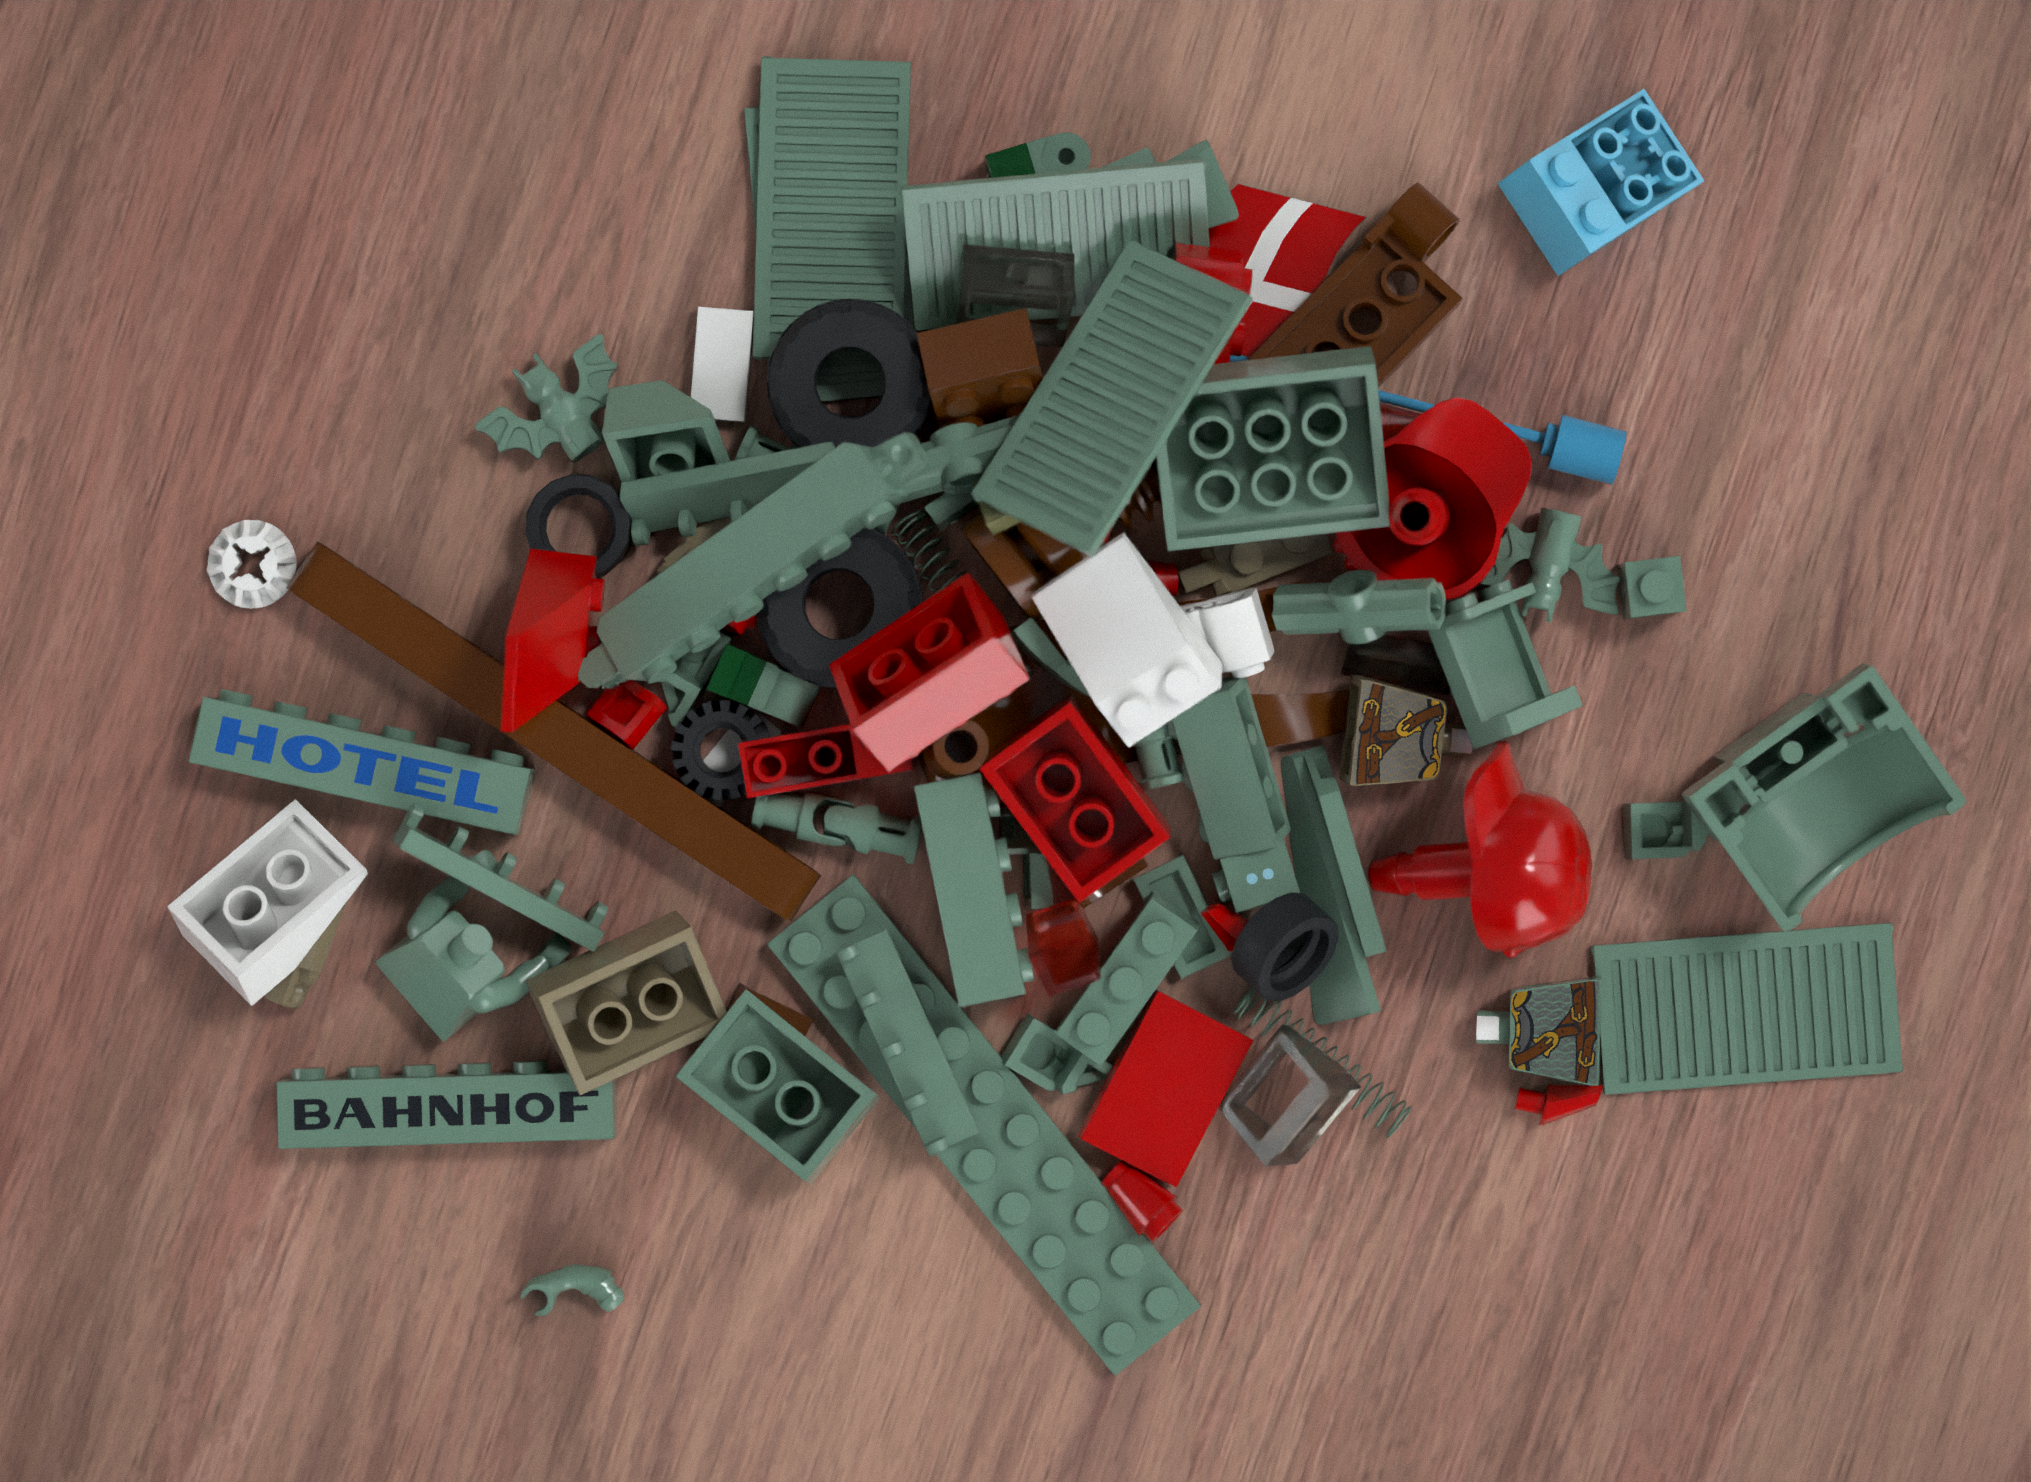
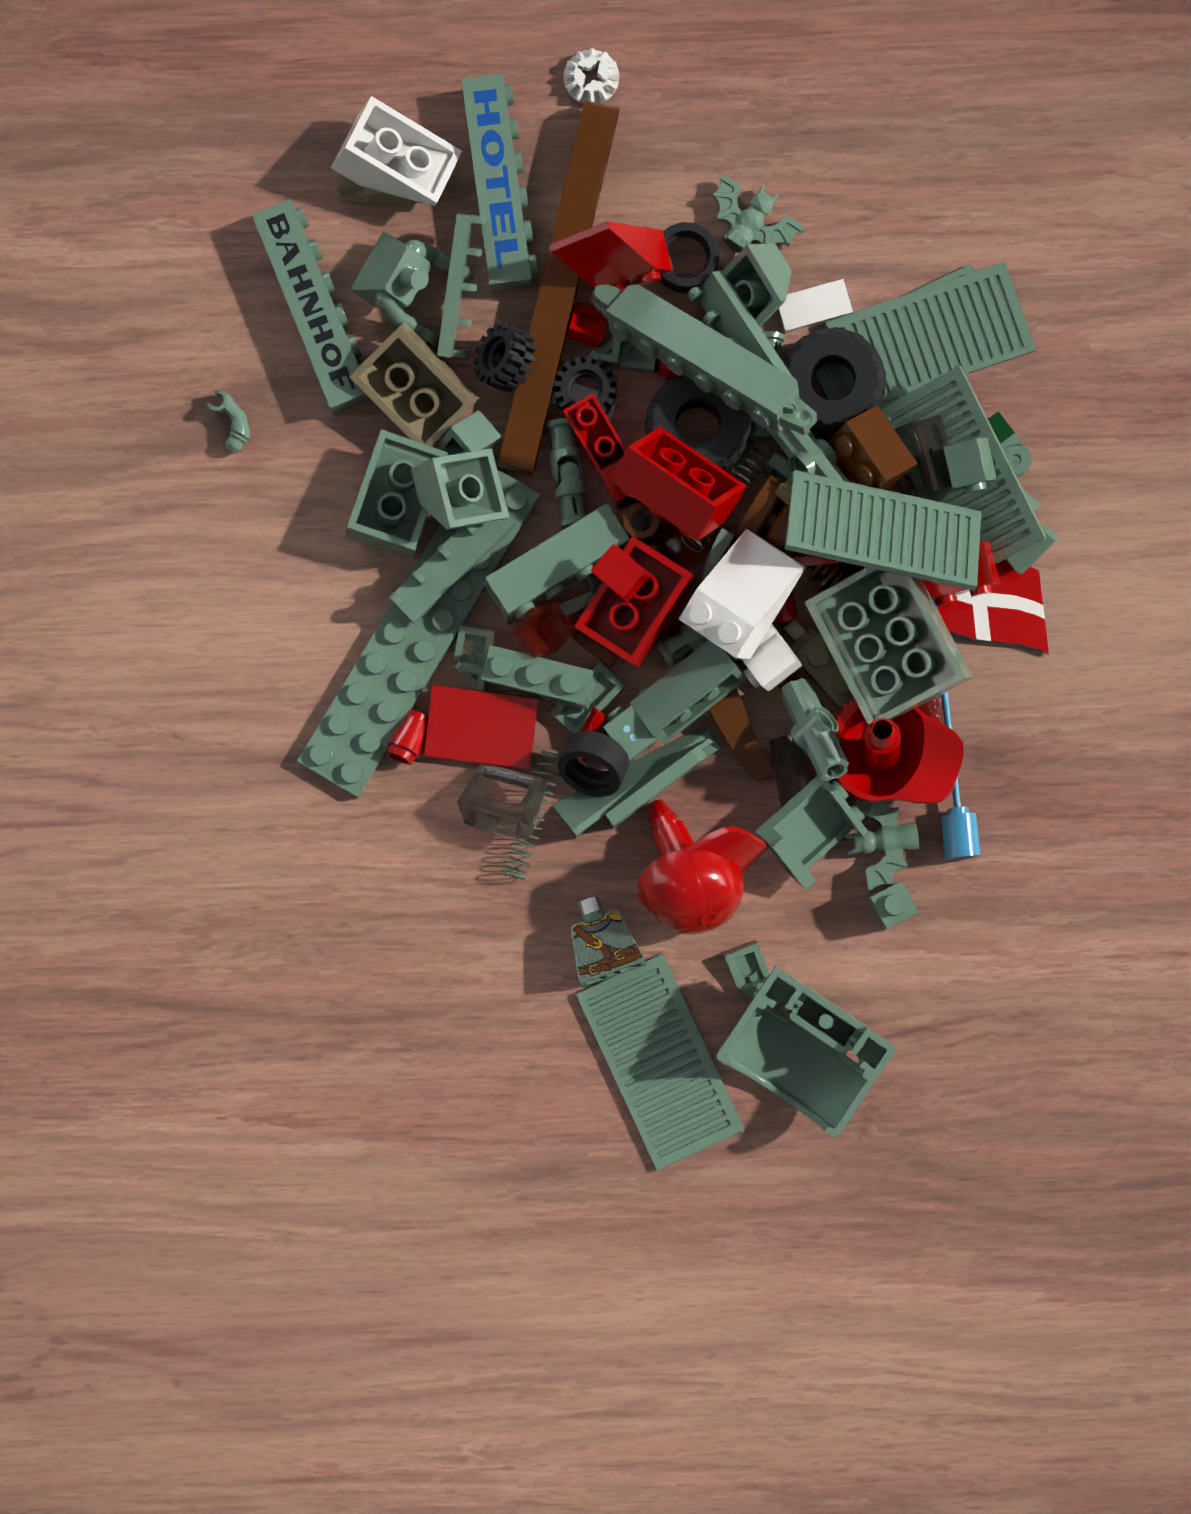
camera: 65 degrees right, 5 degrees down
(633, 852) = (504, 357): none -> black tyre
(737, 950) = (470, 435): none -> sand green brick
(763, 686) = (632, 398): leg -> none
(816, 993) = (461, 489): none -> sand green slope
(1032, 809) = (620, 572): none -> red panel
(1055, 230) = (970, 464): none -> sand green brick
(1396, 734) = (746, 785): torso -> none
(1398, 242) = (1043, 678): reddish brown hinge -> none
(1557, 1100) = (561, 967): red bar -> none
(1600, 182) = (1124, 784): medium azure slope -> none

